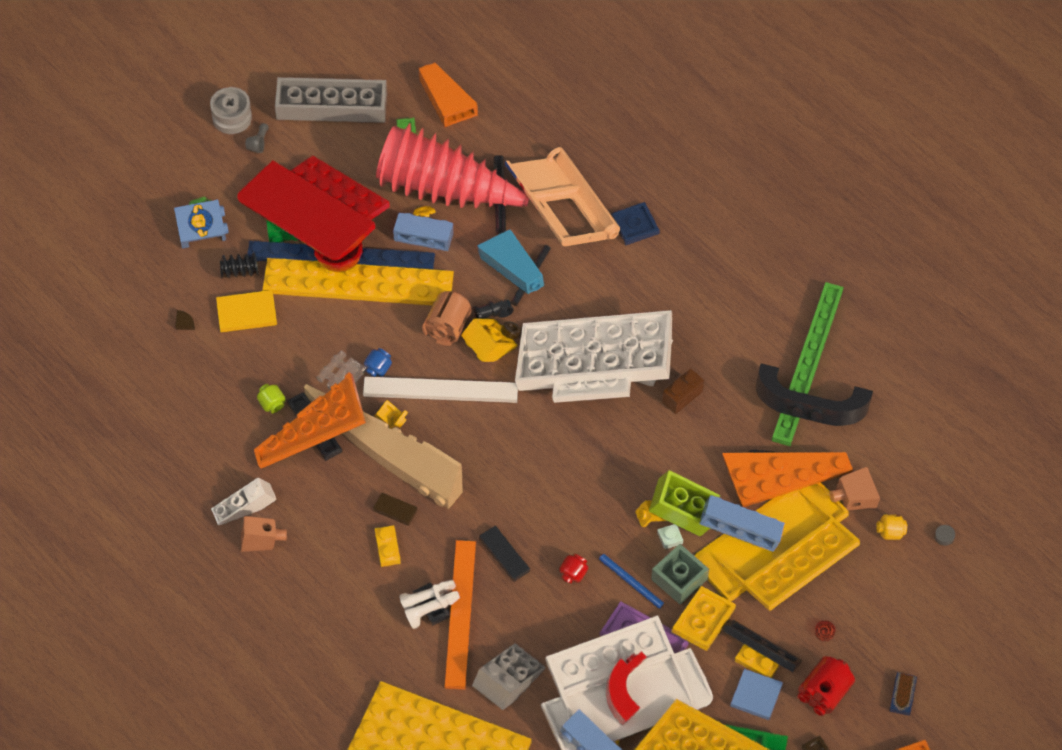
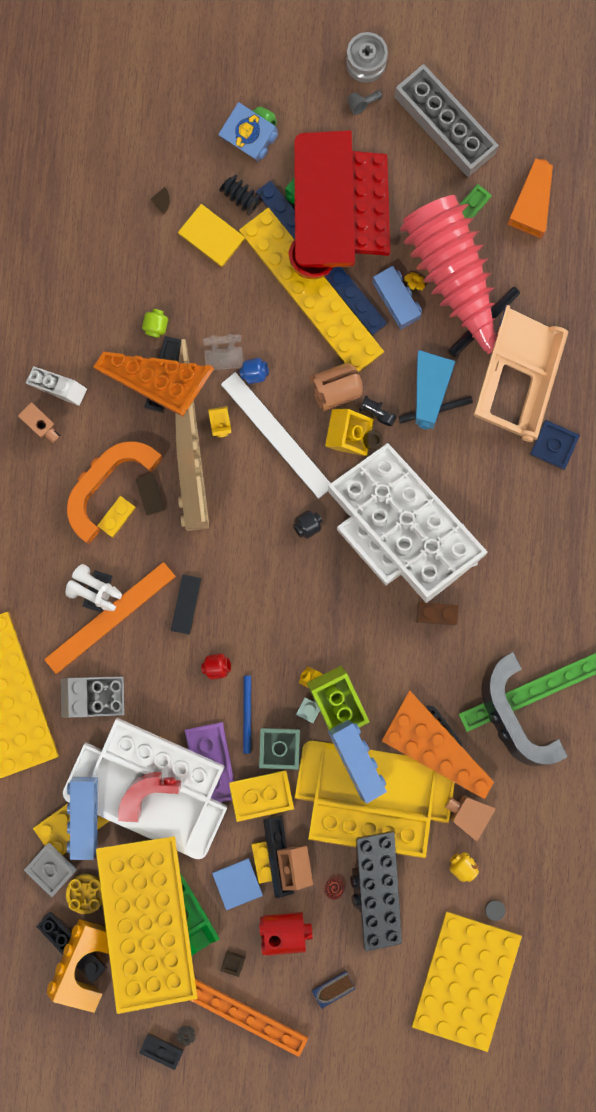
camera: 50 degrees right, 25 degrees up
(352, 490) = (96, 475): none -> orange arch
(529, 420) = (307, 524): none -> black head
(782, 638) = (295, 868): none -> nougat brick
(852, 595) = (377, 890): none -> black bracket
(981, 598) = (466, 981): none -> yellow plate

